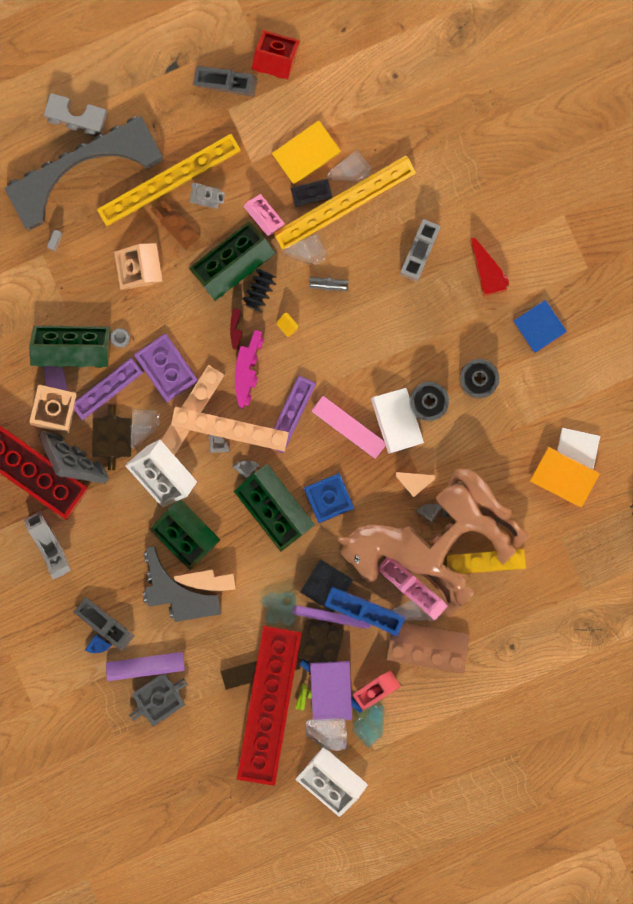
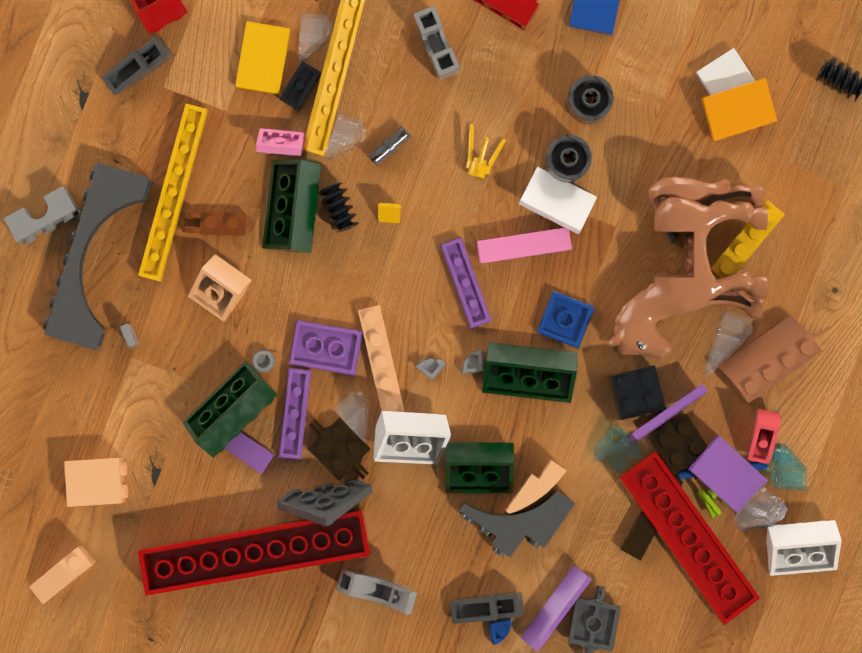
camera: 45 degrees left, 0 degrees up
(53, 409) = (268, 474): light nougat slope -> none
(206, 196) = (217, 174): light grey hips -> none
(229, 429) = (429, 344): light nougat plate -> none
(235, 334) = (354, 262): dark red slope -> none
(244, 376) = (397, 290): dark pink slope -> none
(366, 611) = (692, 380): blue slope -> none
(370, 351) = (478, 166): none -> yellow plant
(412, 587) = (709, 323): bright pink slope -> none
(414, 482) = (623, 237): light nougat slope -> none
(429, 511) = (657, 247): light grey tile -> none

